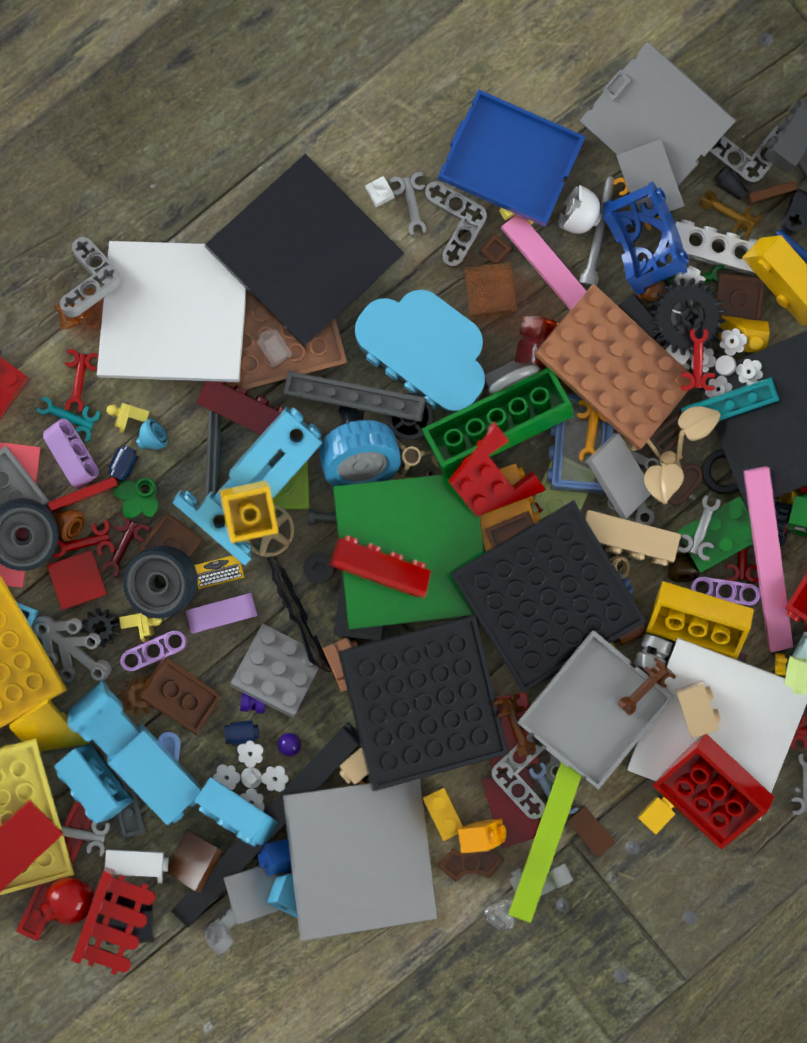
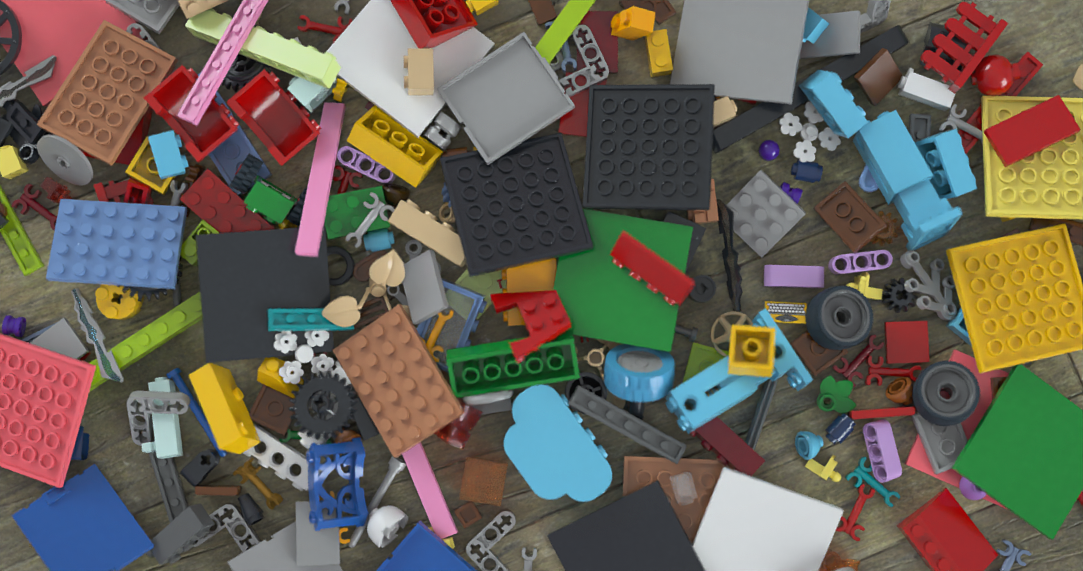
camera: 155 degrees left, 0 degrees up
(48, 728) = (975, 227): yellow slope -> none
(275, 857) = (811, 58): blue brick -> none
(508, 528) = (531, 271): reddish brown tile -> none
(510, 708) = (576, 122): reddish brown bar -> none
(657, 674) = (445, 110): reddish brown bar -> none
(684, 514) = (378, 240): none -> medium azure brick
(698, 379) = (330, 348): red bar -> none

